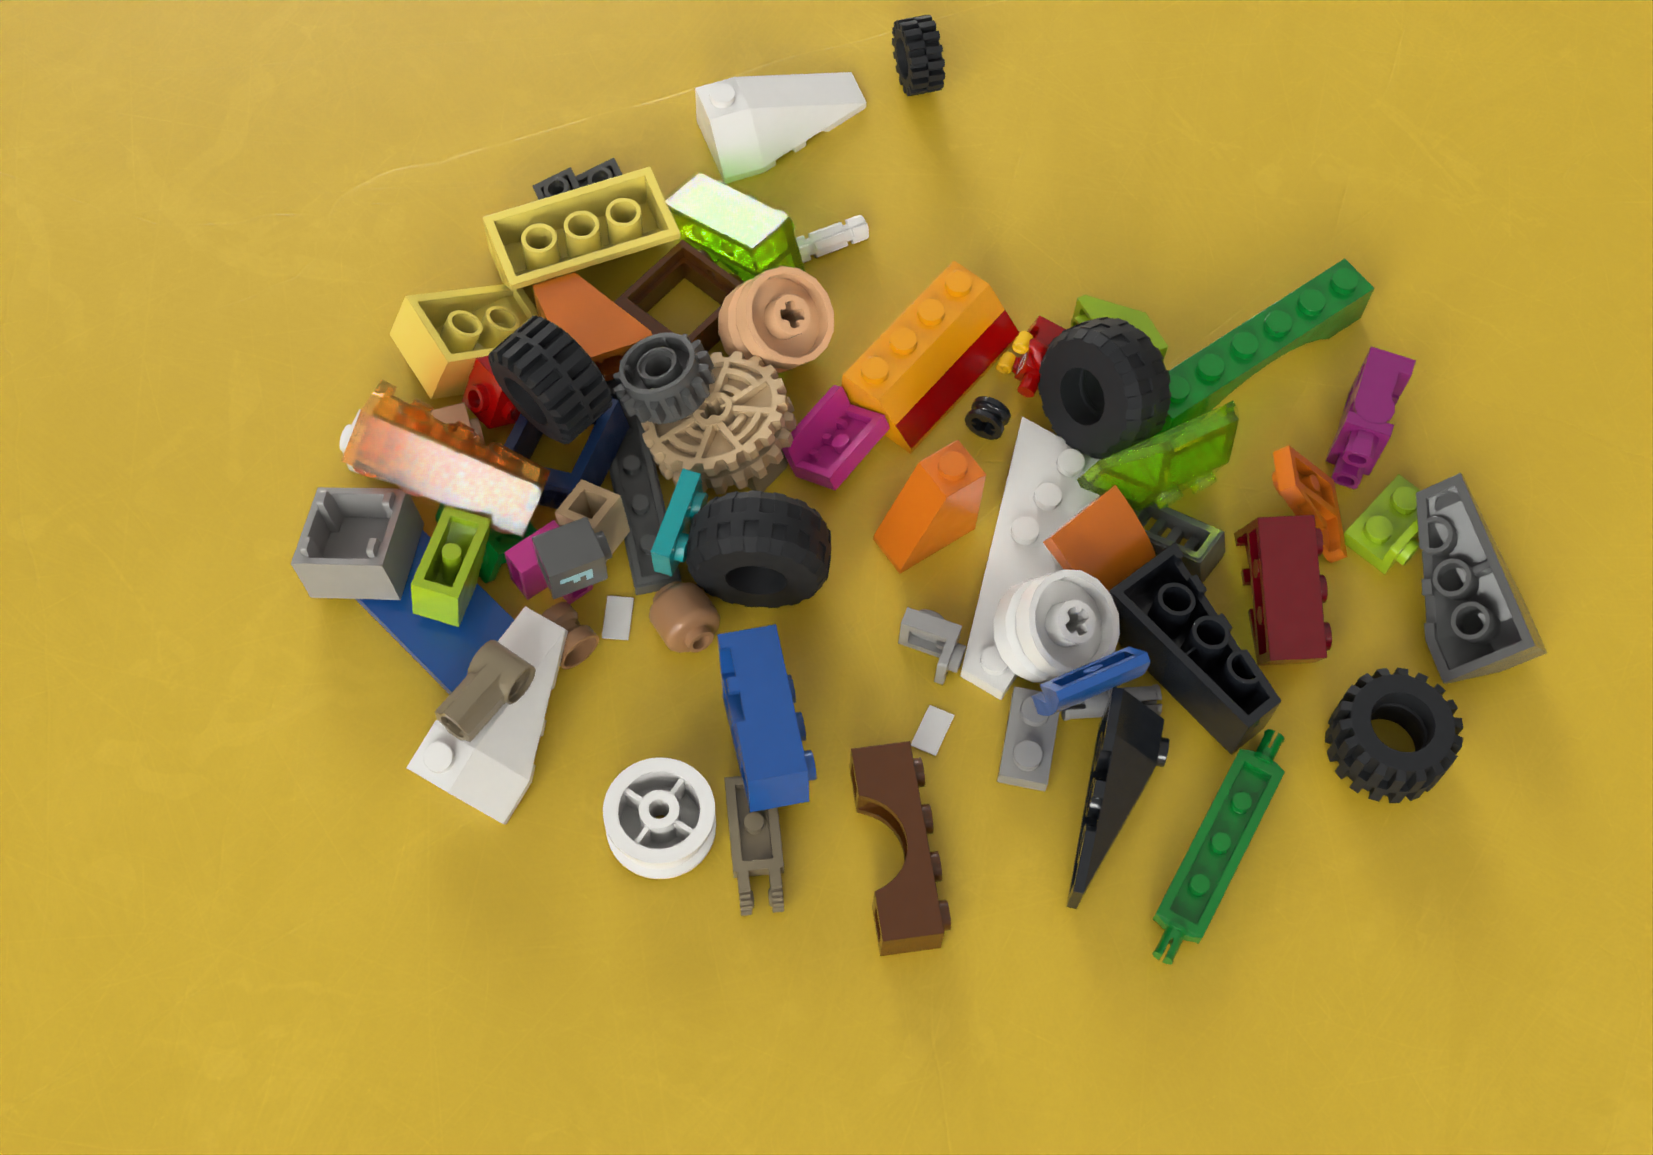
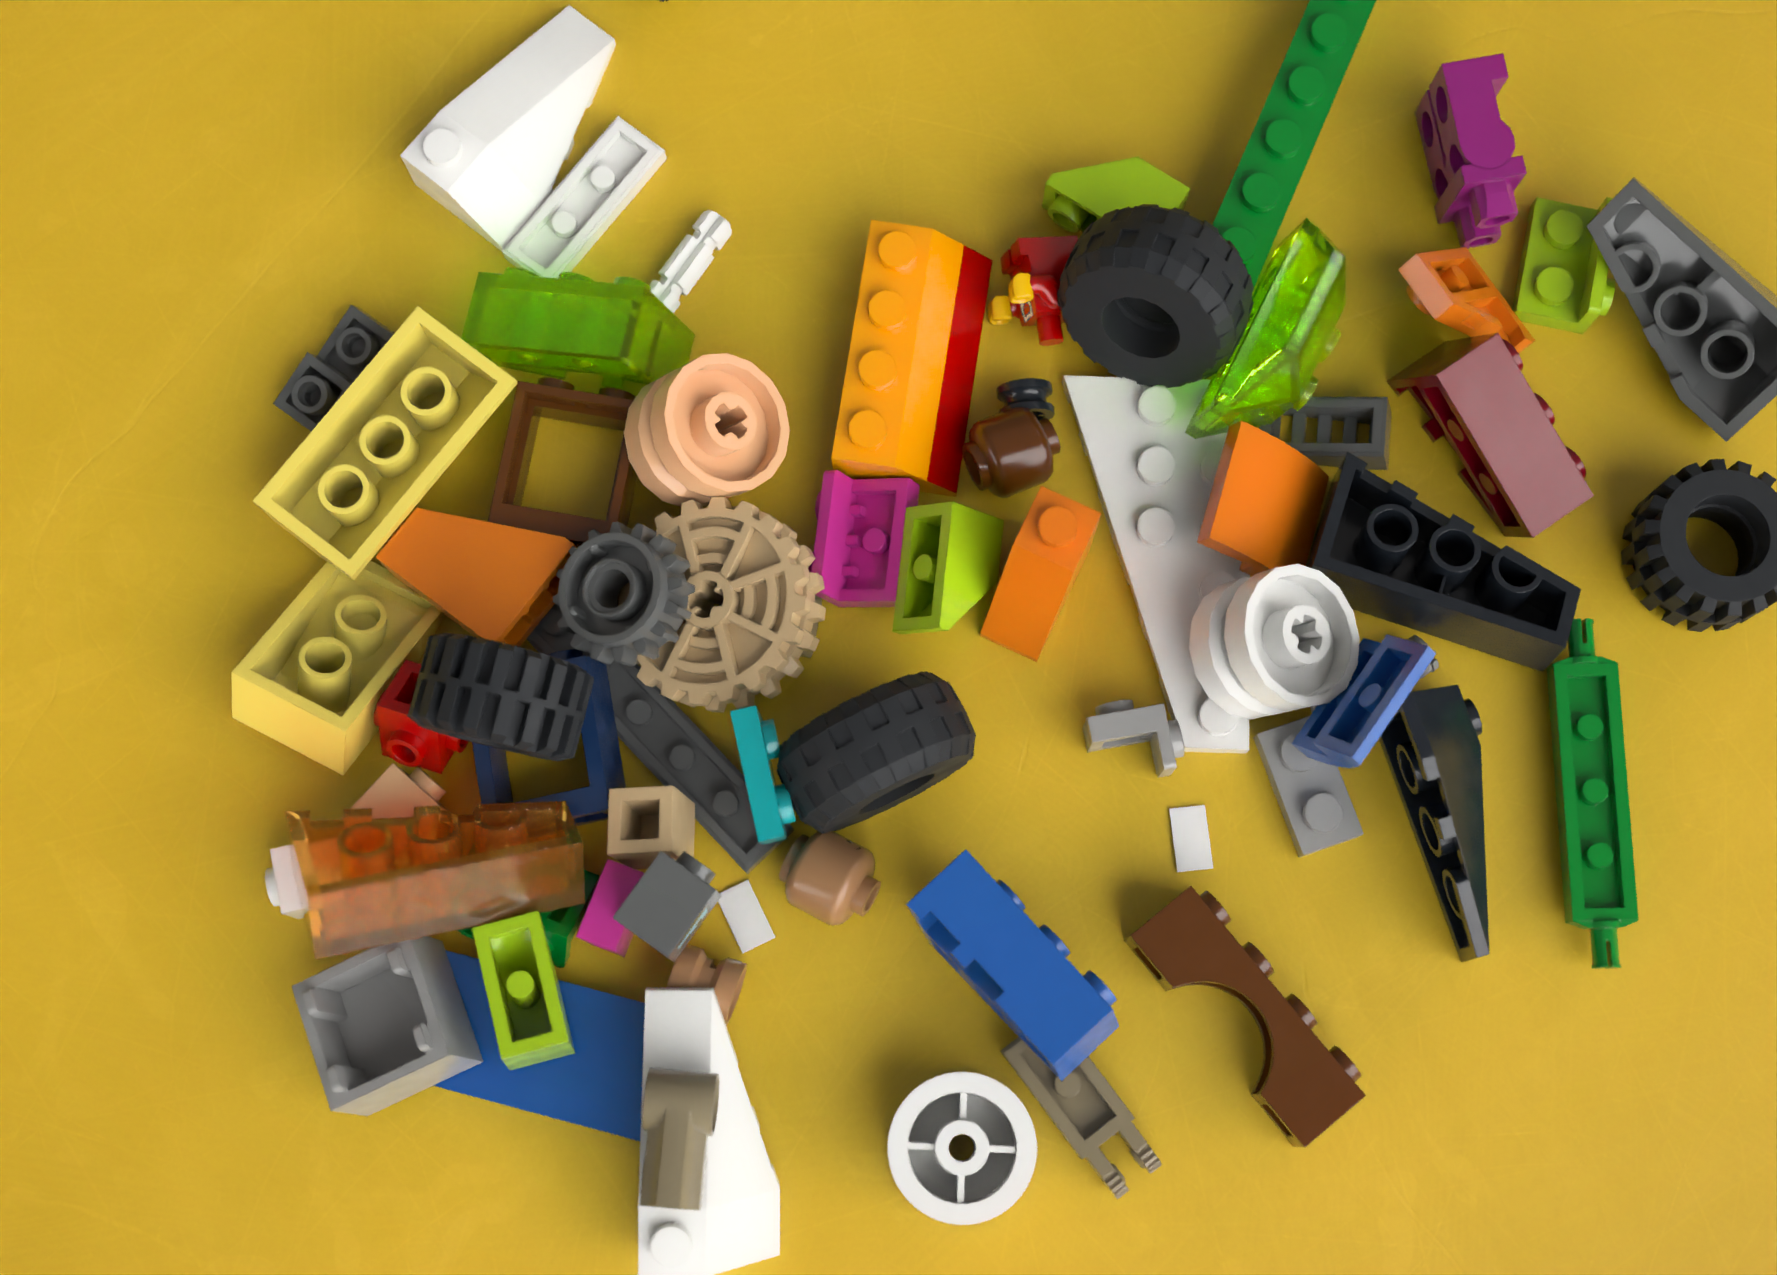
camera: 25 degrees left, 15 degrees up
(795, 175) = (586, 202): none -> white tile
(873, 471) = (944, 565): none -> lime slope
(961, 425) = (1010, 452): none -> reddish brown head

